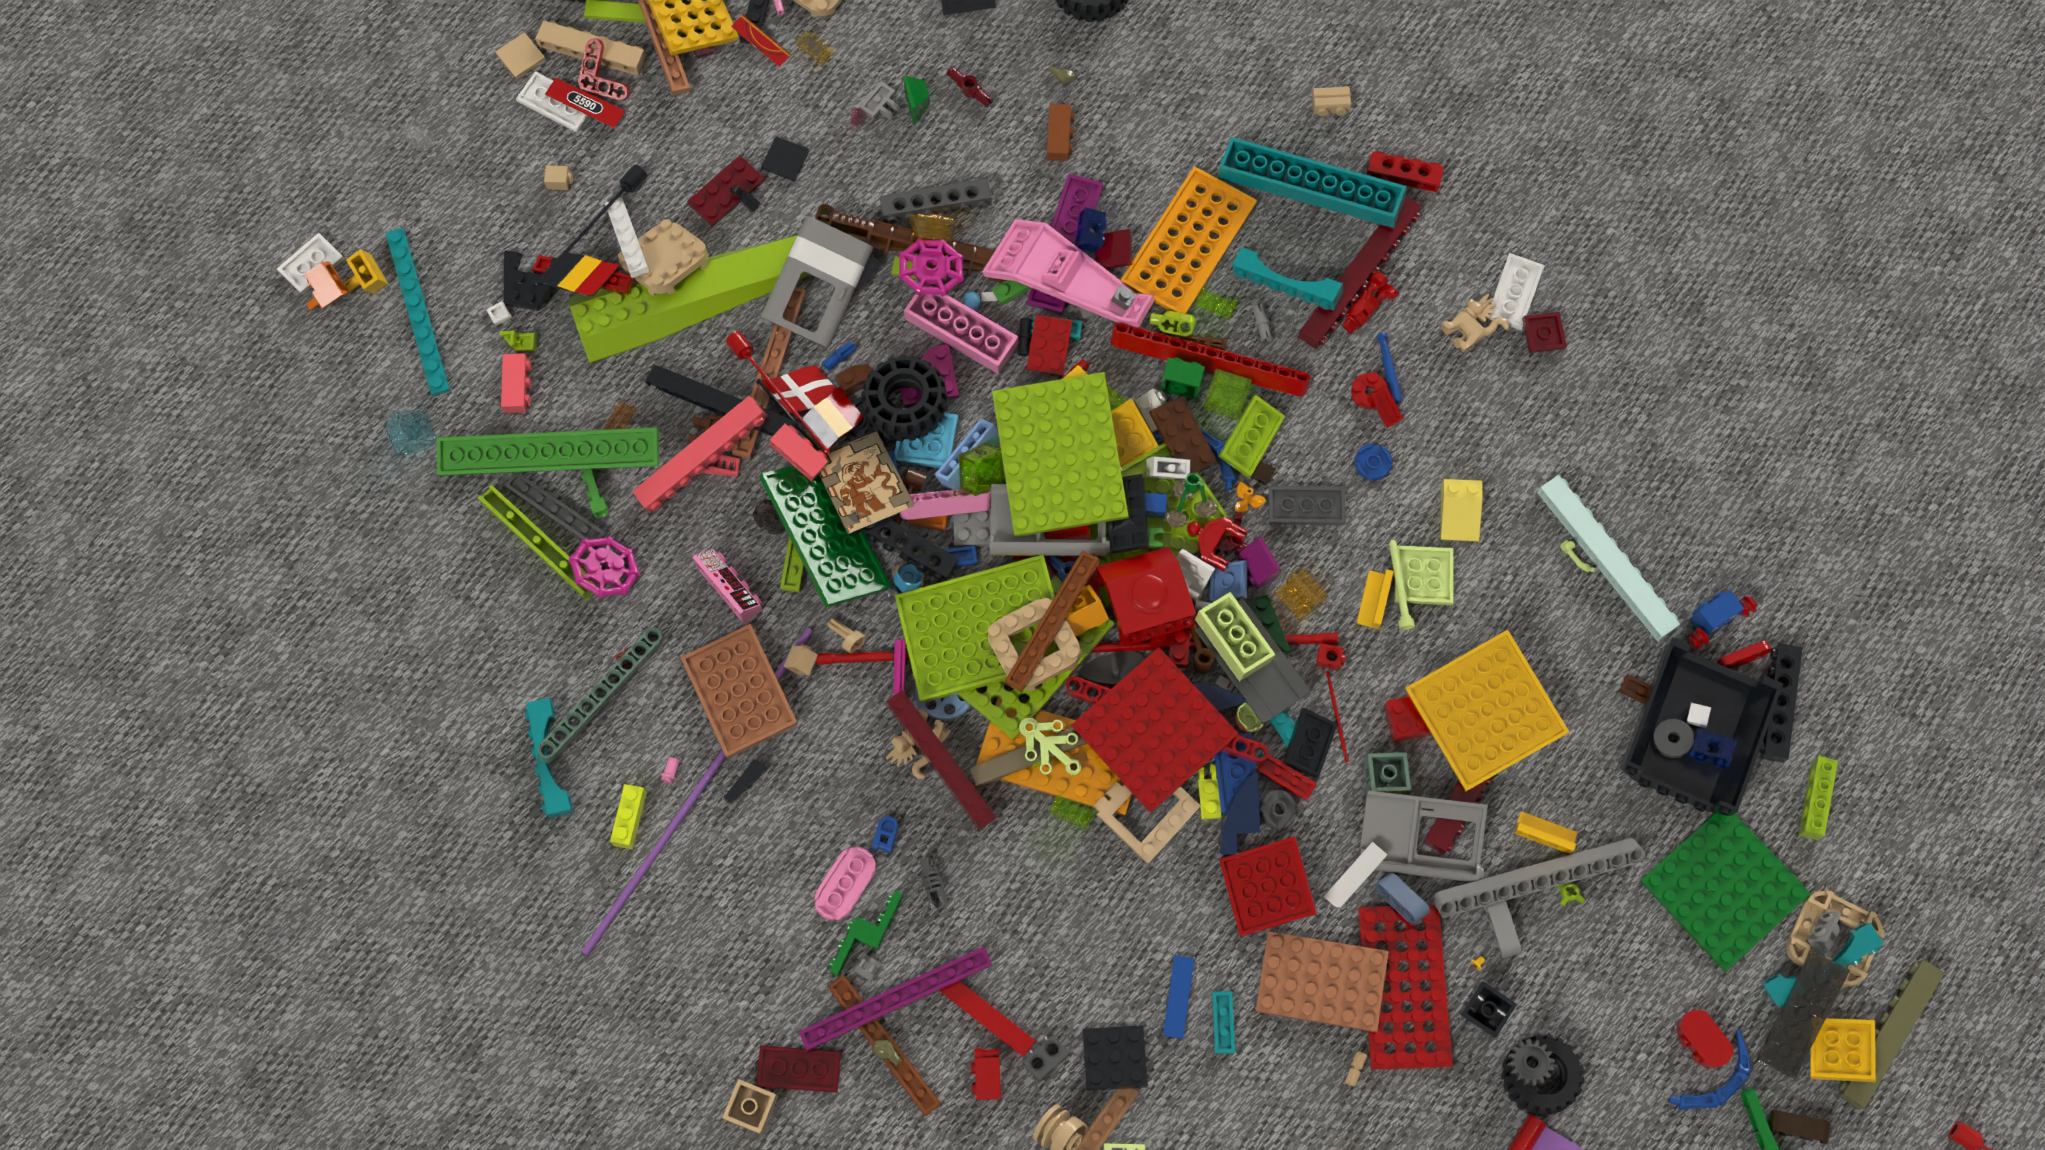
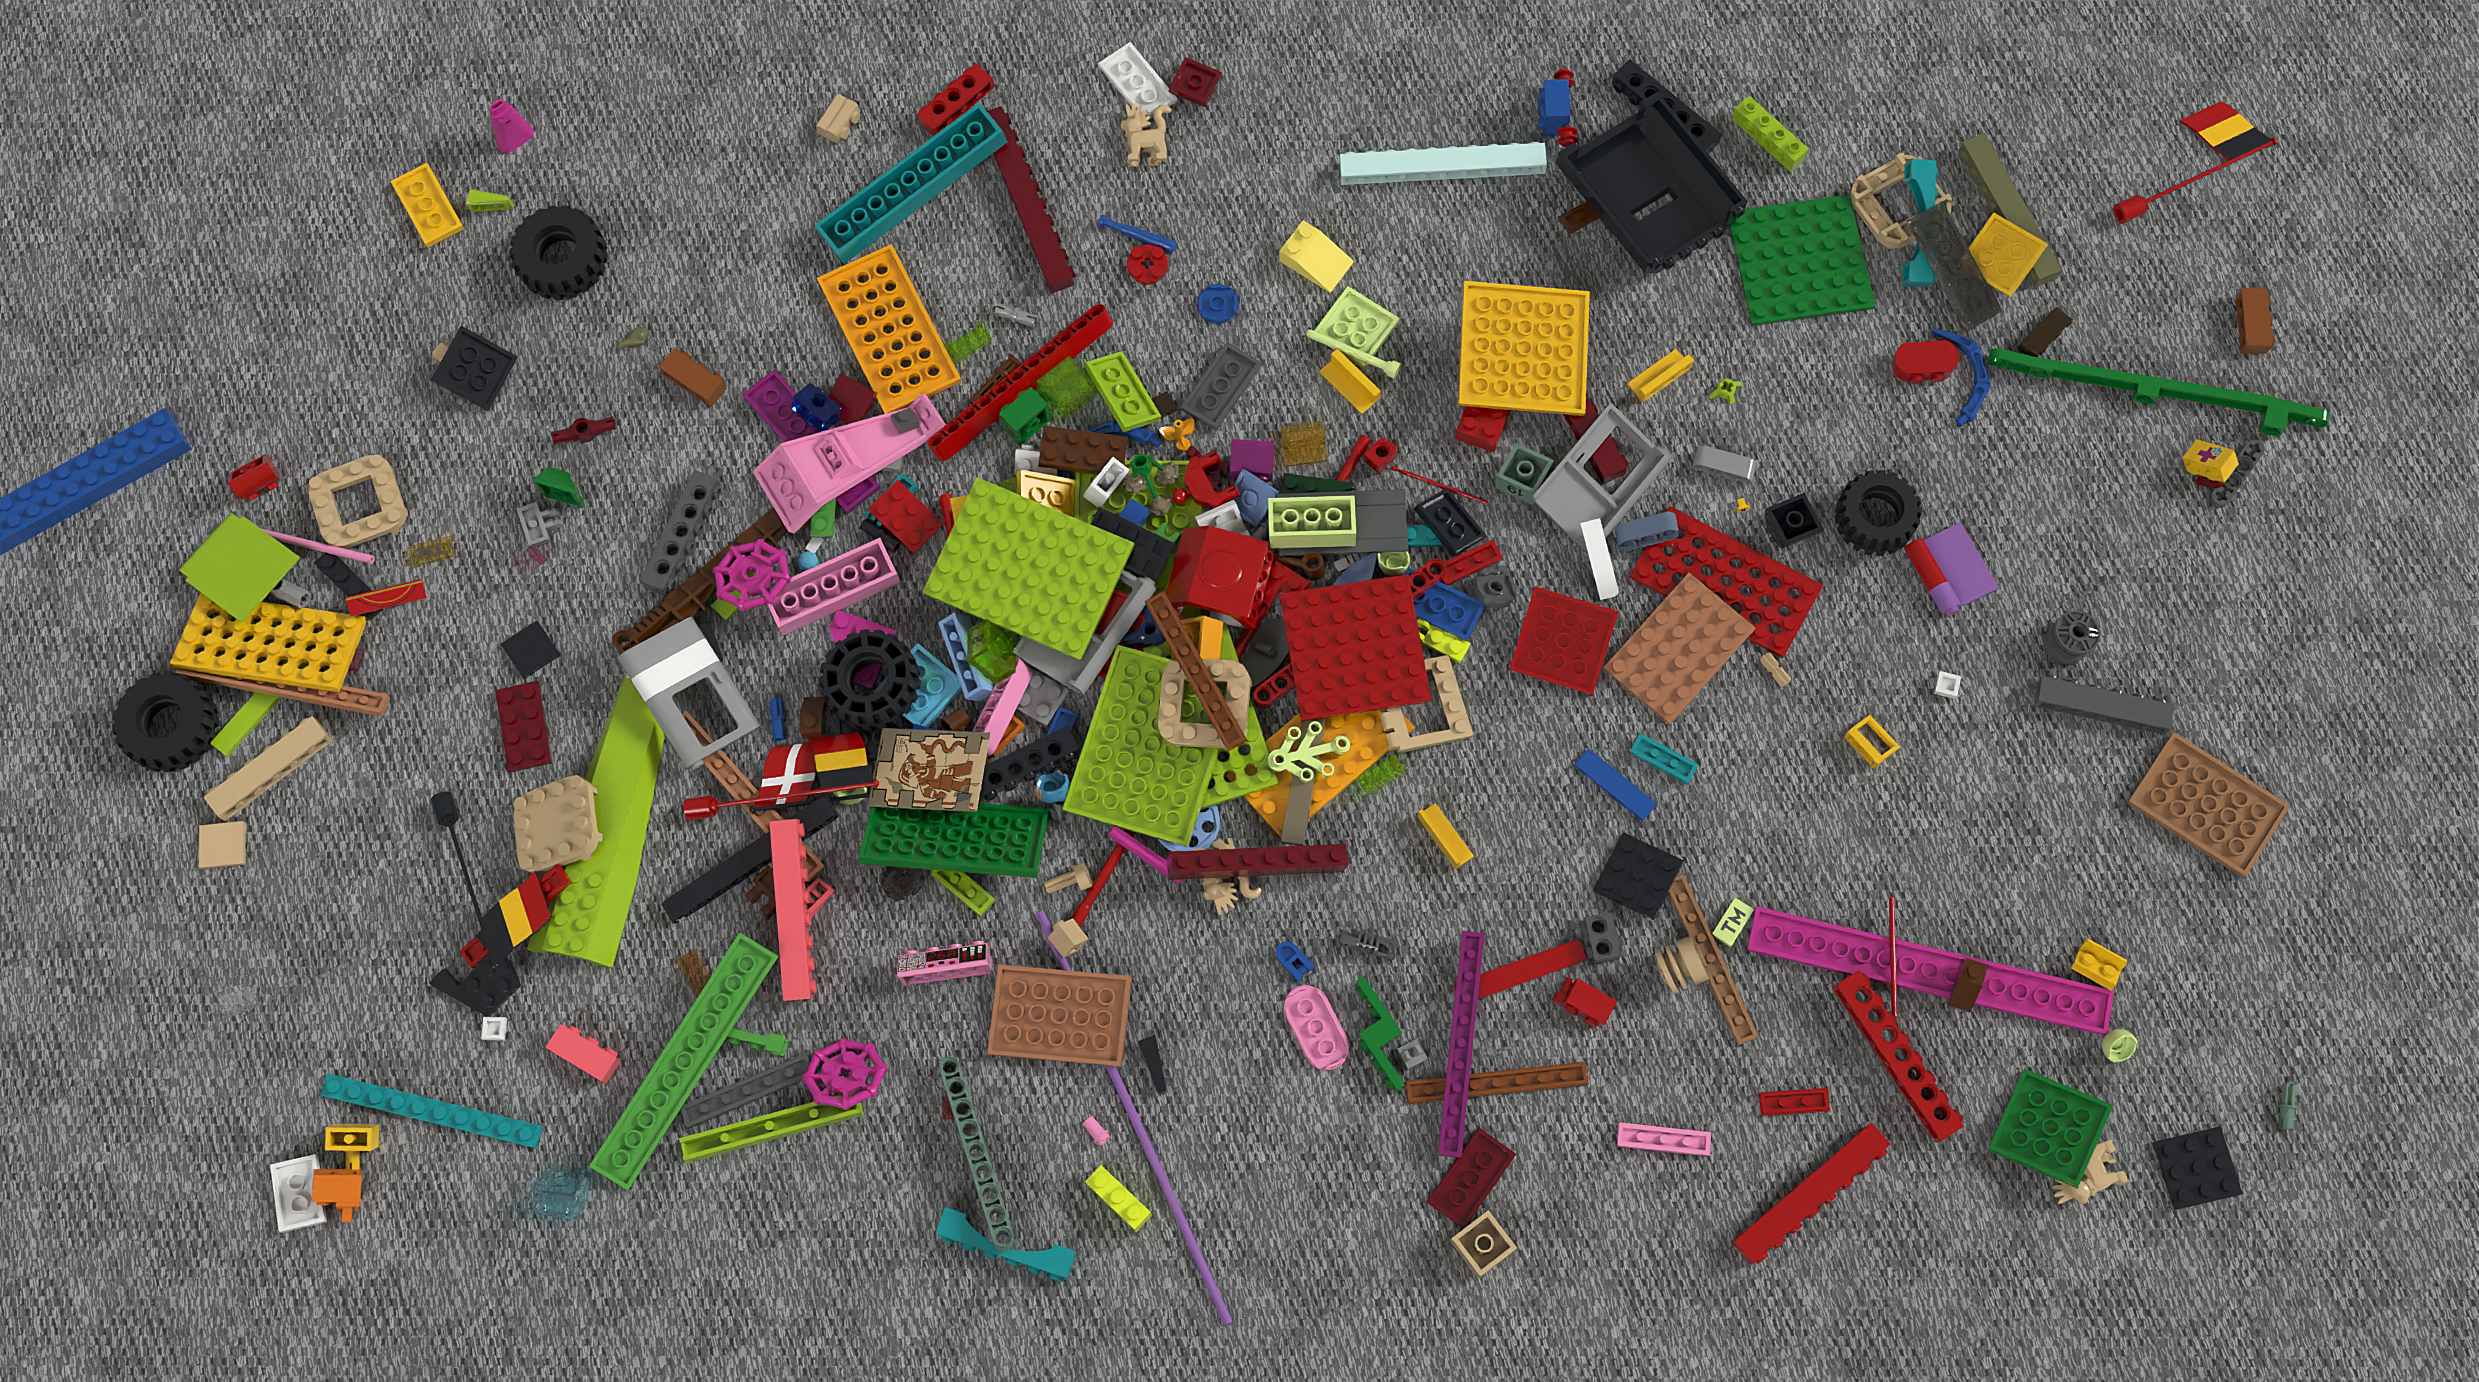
camera: 55 degrees left, 0 degrees up
(521, 341) = (540, 1024): lime slope -> none
(534, 97) = (301, 838): white tile -> none
(558, 177) = (388, 883): tan brick -> none
(584, 102) = (324, 809): red sticker -> none
(586, 73) = (301, 783): beam -> none
(627, 238) = (510, 849): white plate -> none
(745, 198) = (546, 711): black bar -> none
(798, 451) = (858, 810): coral brick -> none
(885, 1050) = (1505, 1082): olive animal -> none
(931, 226) = (708, 550): clear yellow plate -> none
(1053, 890) = (1445, 836): none -> yellow panel
(1161, 321) = (964, 396): lime piece -> none
(1241, 814) = (1481, 622): dark blue slope -> none
(1323, 293) = (1028, 242): teal arch -> none
(1367, 303) = (1056, 196): red piece -> none
(1386, 406) = (1173, 258): red tile -> none
(1538, 877) = (1698, 406): light grey beam -> none
(1541, 1059) = (1871, 501): dark grey gear -> none
(1567, 547) = (1410, 192): yellowish green piece -> none
(1676, 727) = (1648, 203): dark grey tile -> none
(1698, 715) = (1637, 180): white tile -> none
(1723, 744) = (1680, 175): clear blue brick -> none
(1745, 655) = (1605, 109): red beam -> none
(1825, 932) = (1891, 203): light grey bracket -> none

